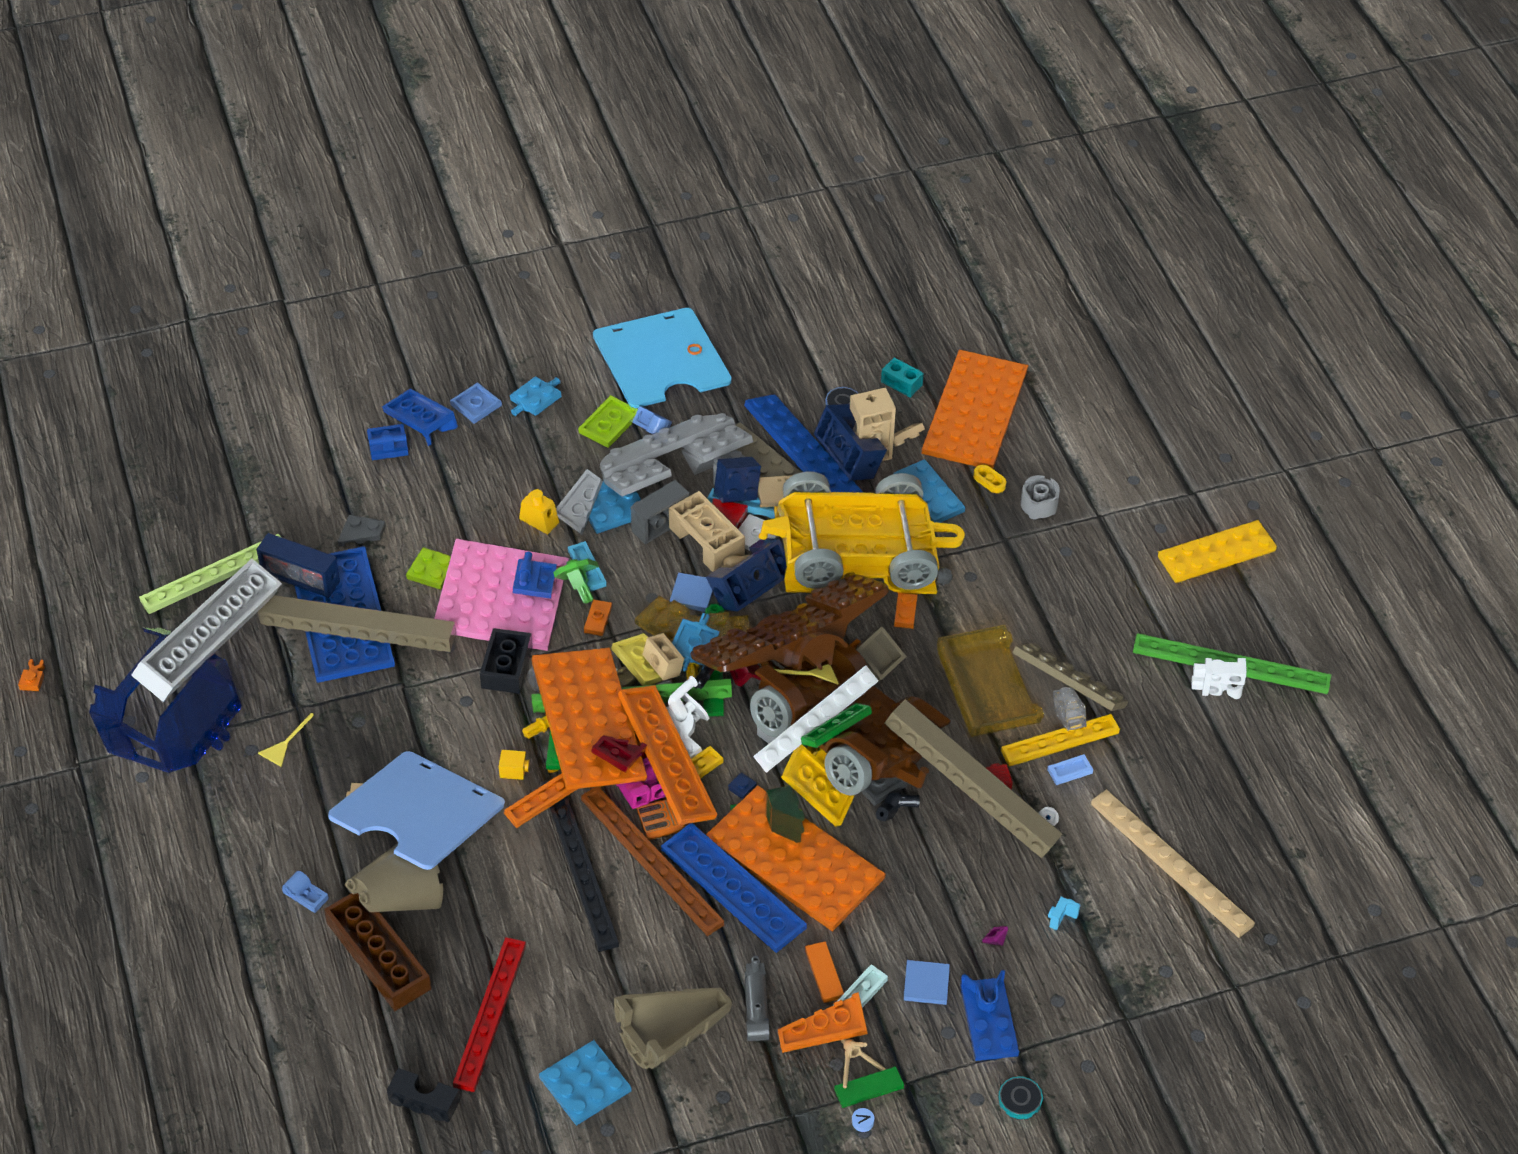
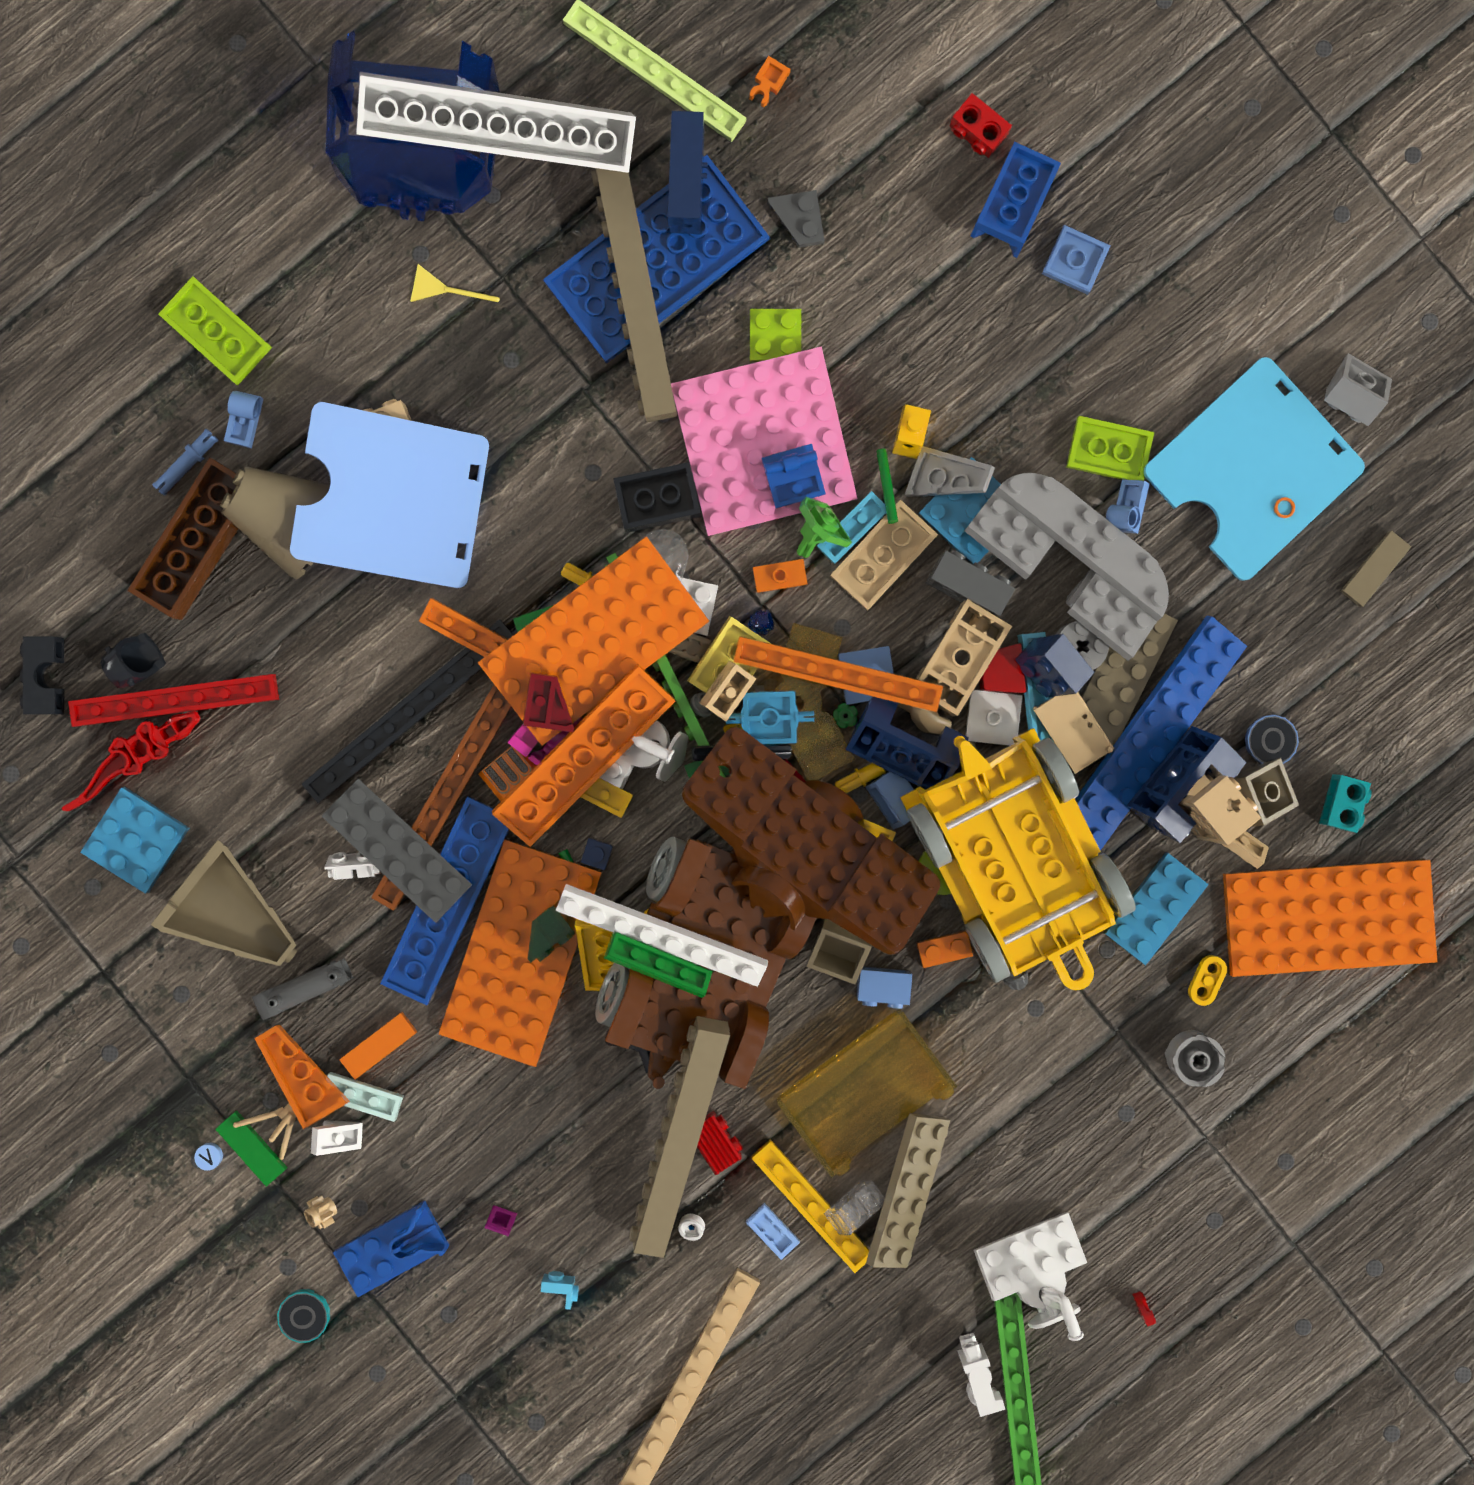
camera: 70 degrees right, 40 degrees up
(229, 888) = (215, 330): none -> lime plate
(261, 514) = (771, 78): none -> orange plate
(311, 935) = (185, 462): none -> medium blue pin
(360, 418) = (985, 121): none -> red brick
(387, 442) = (957, 178): blue plate -> none
(446, 1030) = (132, 661): none -> black helmet
(513, 764) = (513, 574): yellow brick -> none
(517, 1052) = (130, 754): none -> red animal
(535, 396) = (1118, 332): dark azure plate -> none
(568, 538) = (887, 486): none -> green bar
(615, 556) = (883, 556): none -> tan plate
(624, 632) = (761, 622): none -> clear blue plate
(640, 295) = (1358, 390): none -> light grey slope
(679, 897) = (397, 850): none -> dark grey plate
(679, 930) = (342, 865): none -> white hinge
(683, 589) = (838, 674): none -> orange plate
(757, 322) = (1375, 569): none -> dark tan tile
(760, 610) = (859, 777): none -> yellow axle
(781, 601) = (887, 793): none -> medium blue brick
(825, 674) = (753, 915): light yellow piece -> none
(883, 1022) = (336, 1137): none -> white slope
(917, 647) = (884, 986): none -> medium blue brick
(926, 982) = (410, 1163): medium blue tile -> none
(939, 1056) = (320, 1212): none -> tan gear
(1150, 624) = (1035, 1269): none -> white plate
(1208, 580) = (1145, 1313): none -> red tile
(1216, 551) = (1200, 1305): yellow plate -> none

